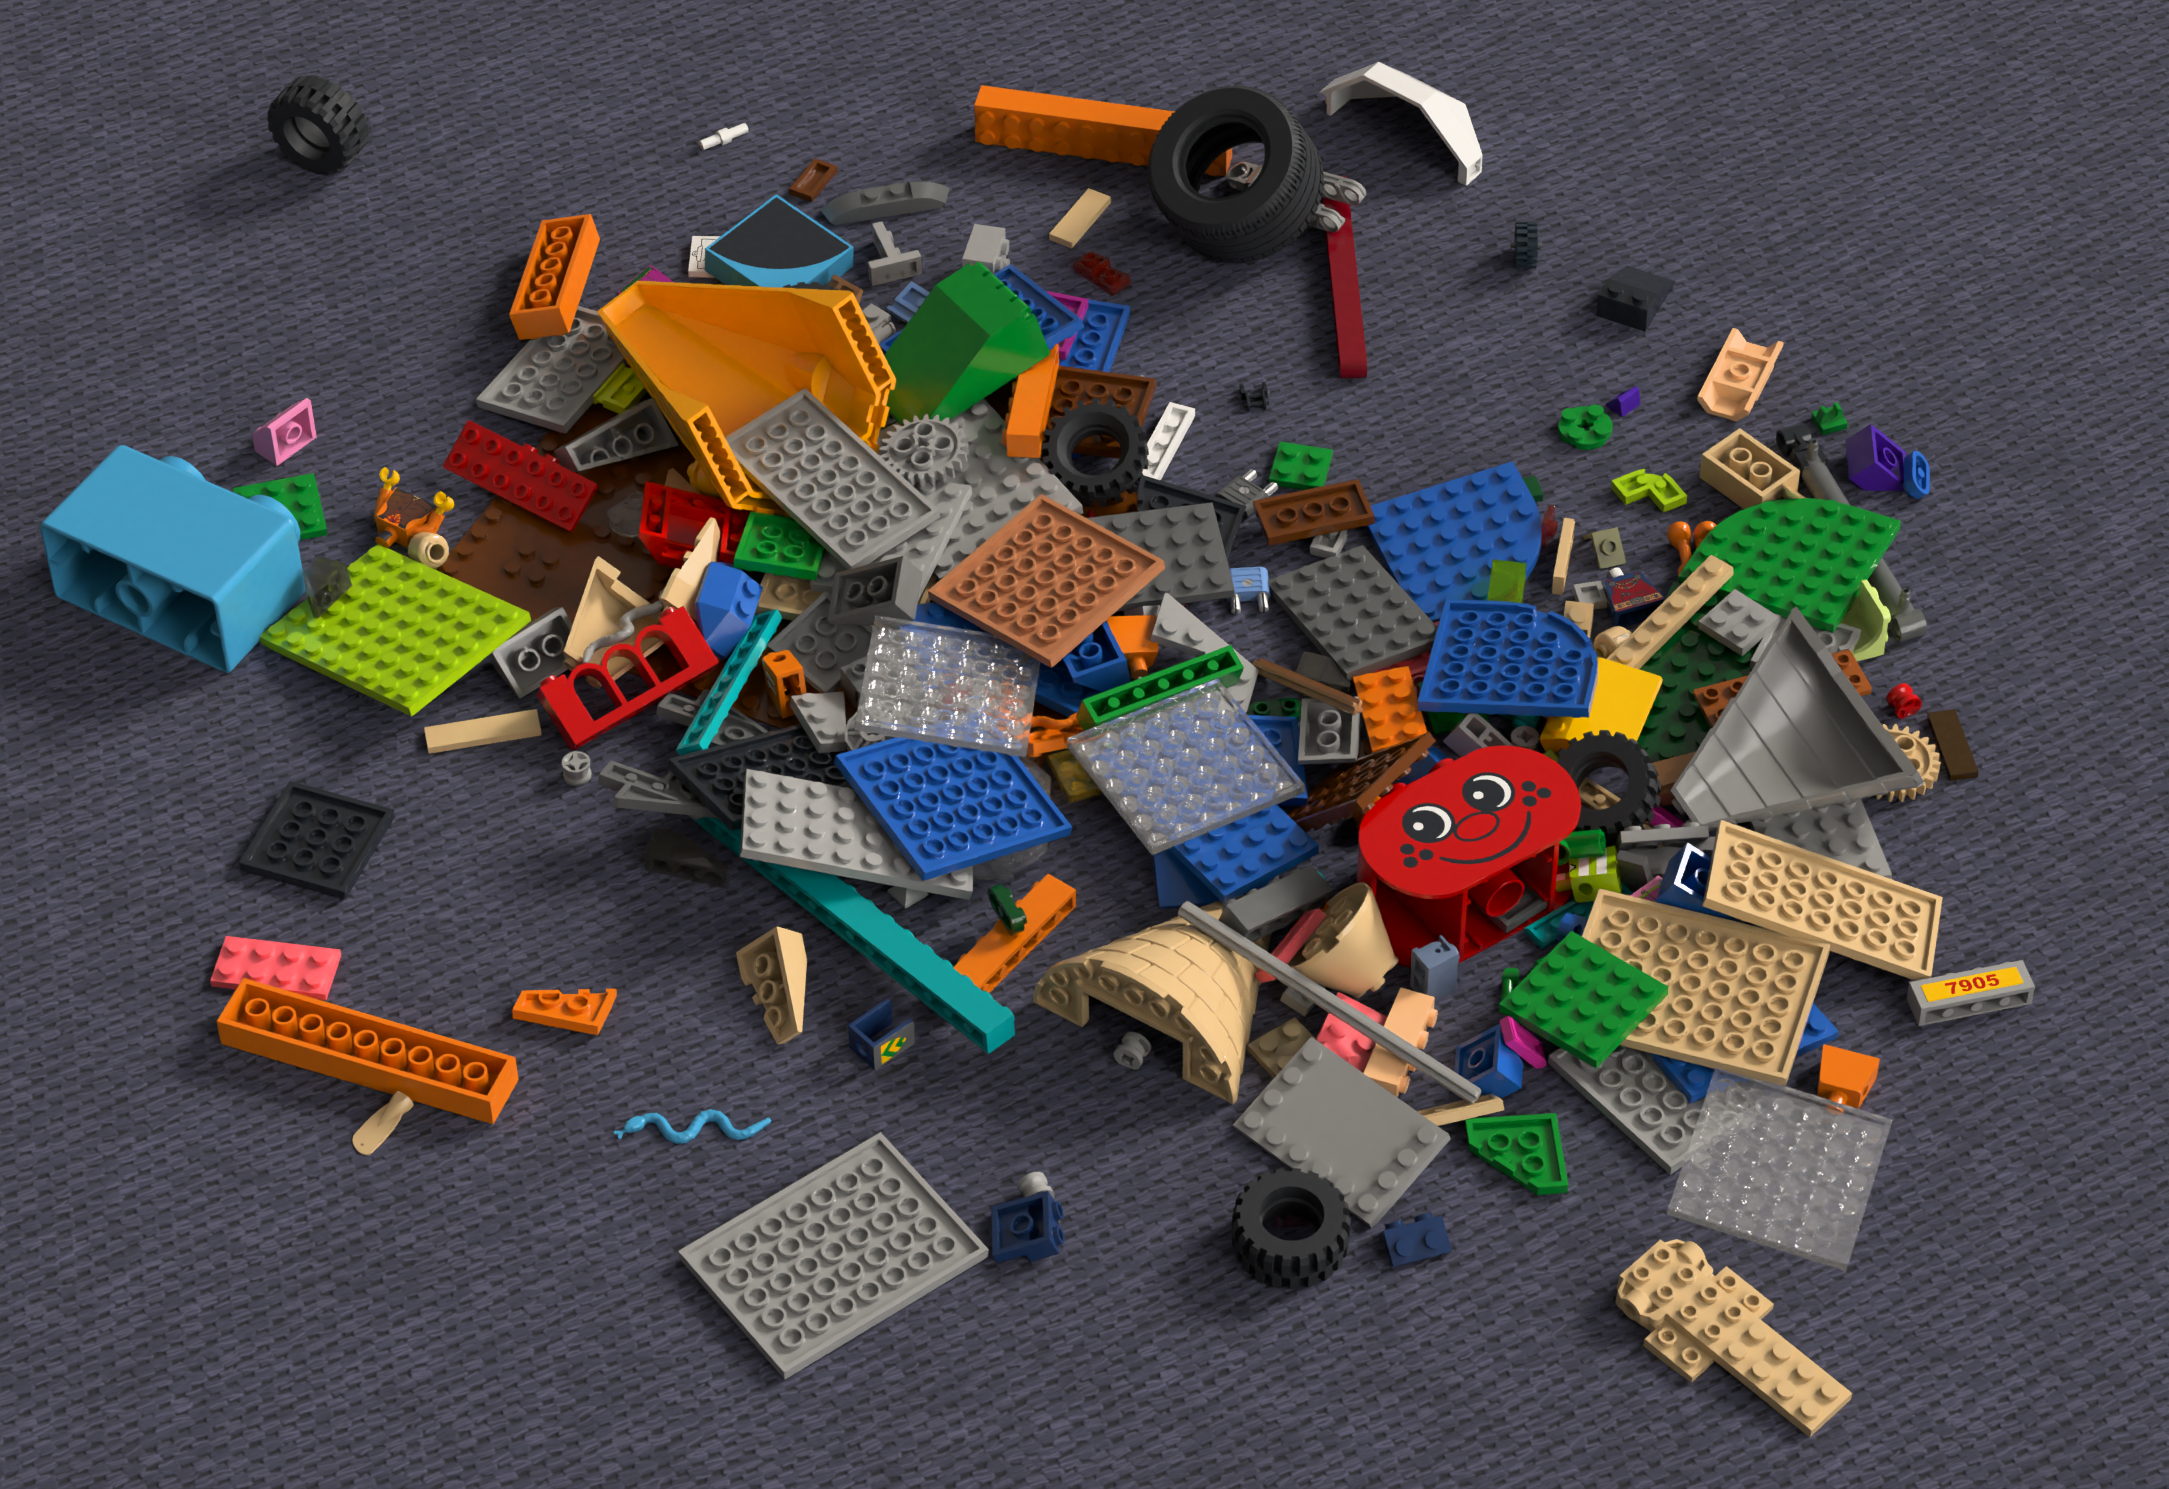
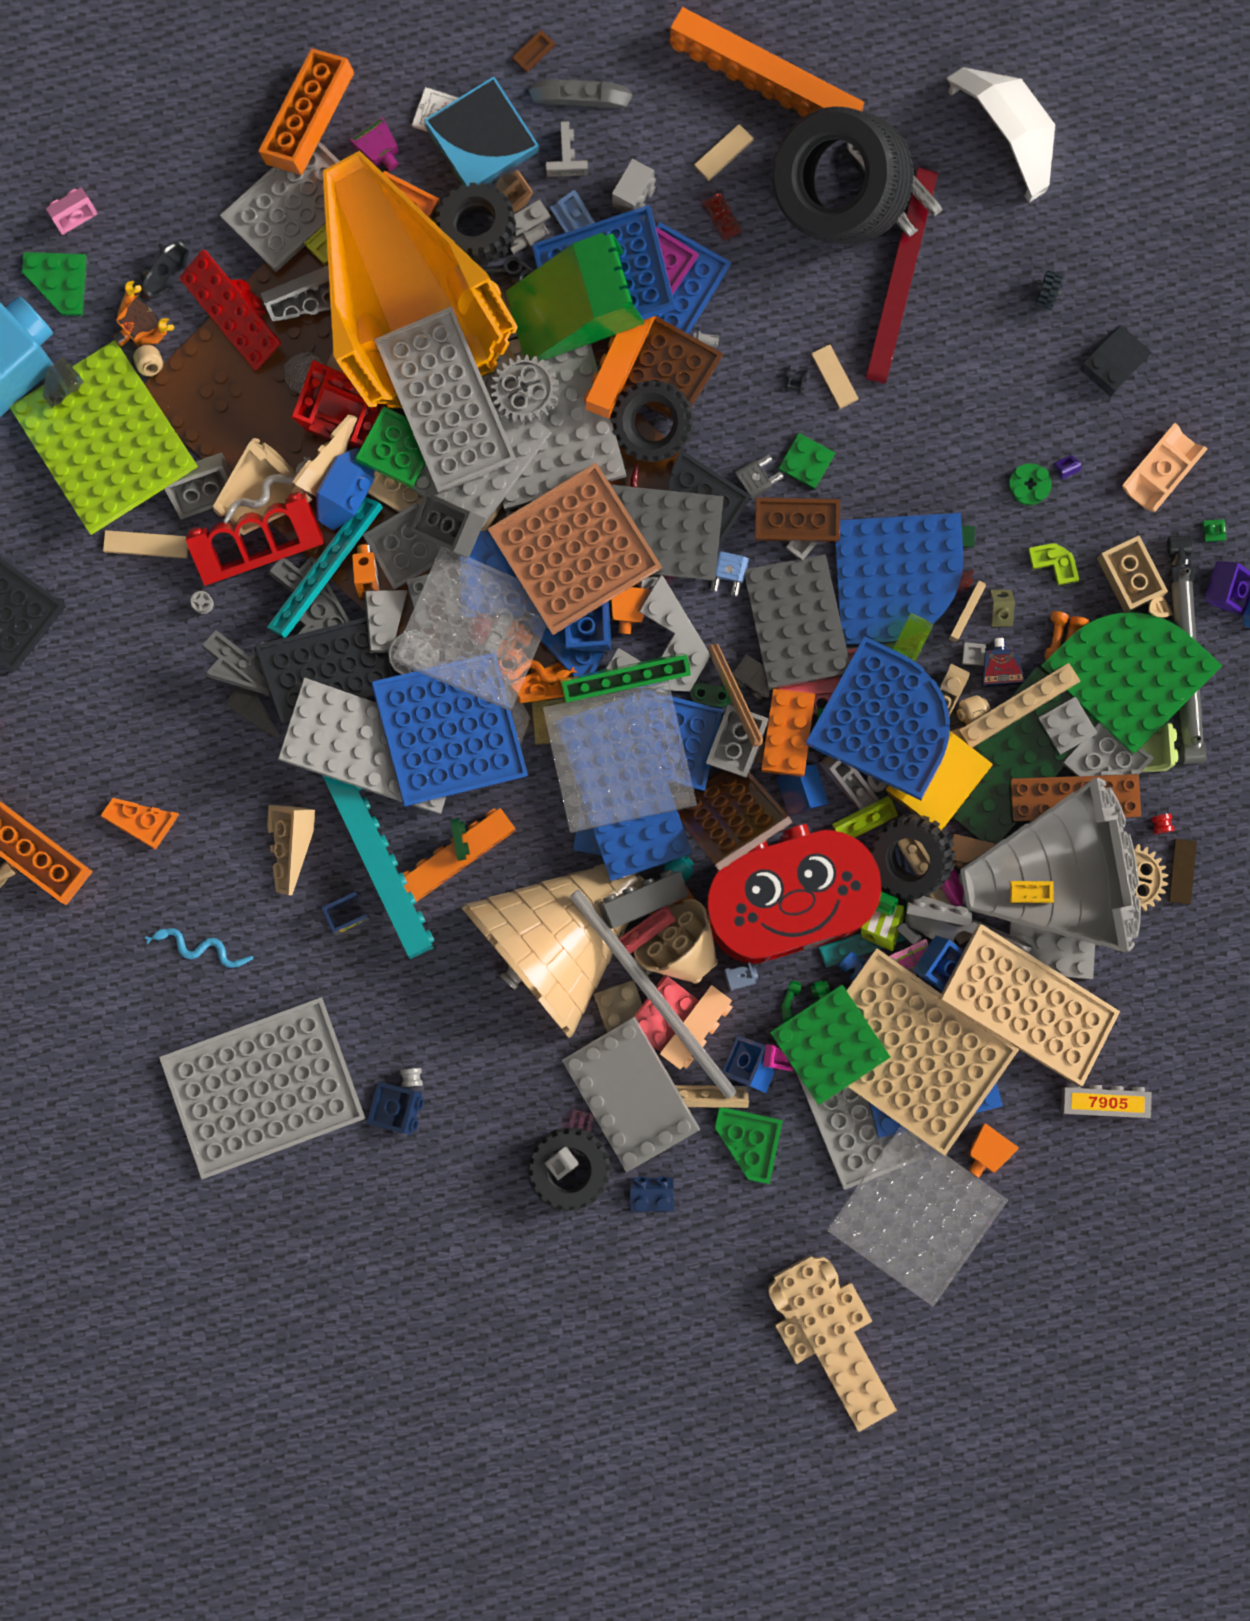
camera: 15 degrees right, 35 degrees up
(428, 447) = (172, 255): none -> black piece
(1167, 438) = (715, 407): white plate -> none
(1278, 1205) = (561, 1163): none -> light grey slope
(1301, 384) = (834, 376): none -> tan tile
(1770, 788) = (1031, 892): none -> yellow plate

